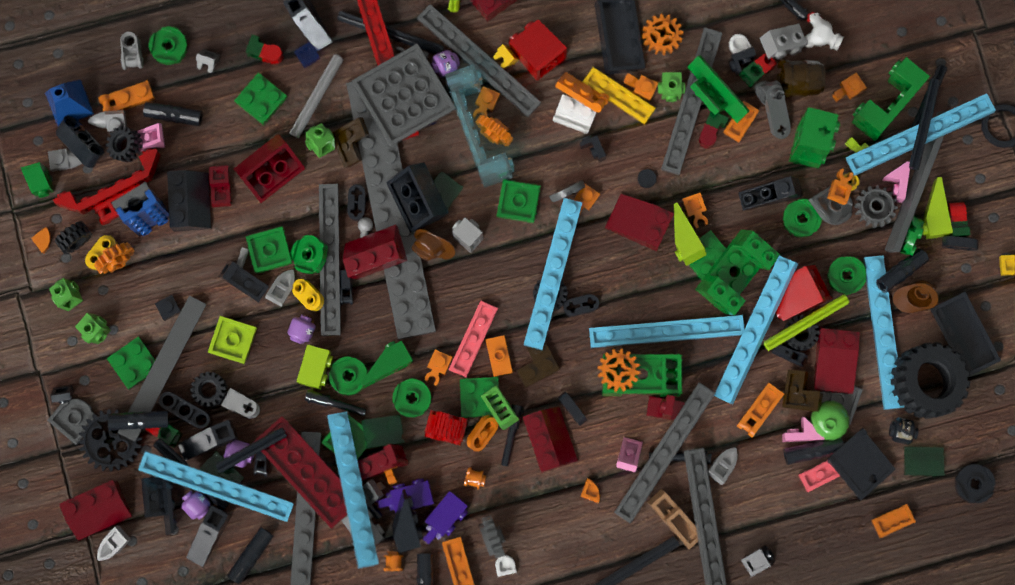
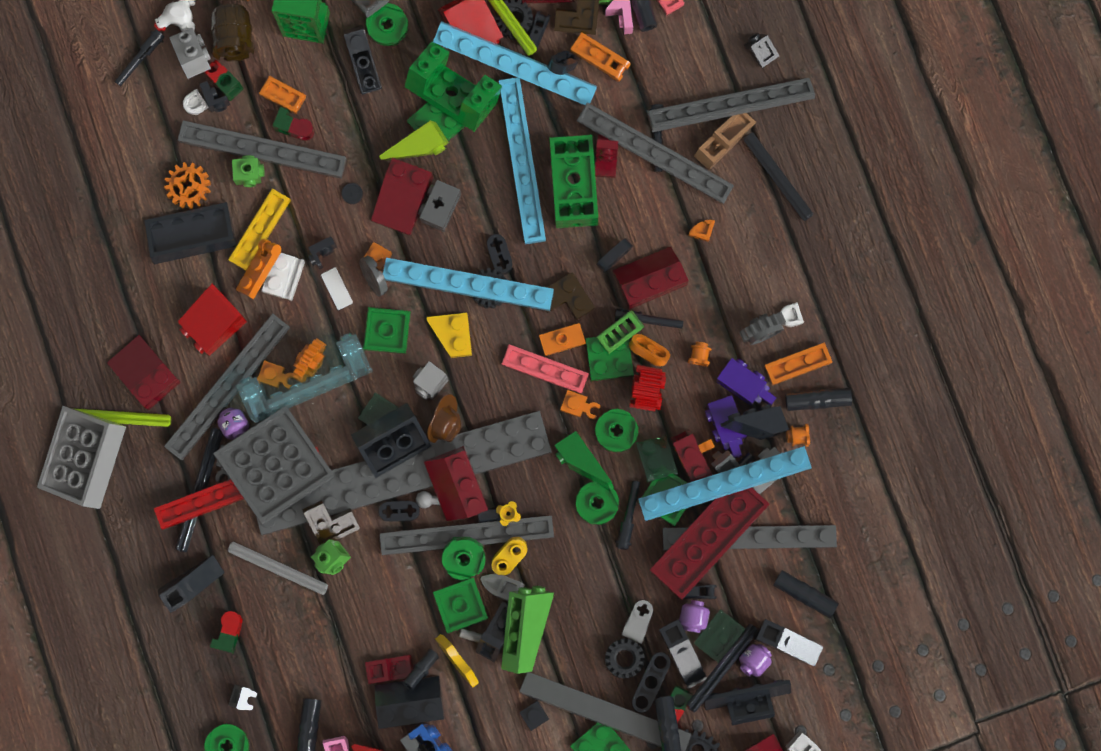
camera: 95 degrees left, 0 degrees up
(215, 247) = (457, 660): none -> yellow tile
(216, 211) = (420, 669): none -> black pin
(216, 486) = (734, 637): medium azure plate -> none
(232, 340) = (566, 637): lime plate -> none
(243, 303) = (524, 627): none -> bright green slope
(251, 450) = (691, 599): black axle -> none
(260, 99) = (284, 632): green plate -> none
(269, 168) = (365, 613): dark red slope -> none
(301, 329) = (549, 560): medium lavender head -> none
(307, 55) = (229, 583): clear blue tile -> none
(314, 367) = (591, 540): lime brick -> none
(339, 295) = (510, 507): none -> yellow plate
(507, 54) = (219, 354): yellow tile -> none
(511, 259) = (453, 333): none -> yellow wing
(561, 160) = (336, 288): none -> white sticker
(619, 362) = (565, 201): orange gear -> none
(629, 454) = (661, 190): bright pink slope -> none
(633, 263) = (439, 217): none -> dark grey brick
(643, 87) = (248, 203): orange plate -> none
(694, 207) = (381, 139): orange plate -> none
(714, 91) = (251, 122): green bracket -> none
(723, 465) = (663, 91): light grey plate -> none
(755, 374) = (563, 62): none -> black beam
(773, 98) = (256, 58): dark grey piece -> none

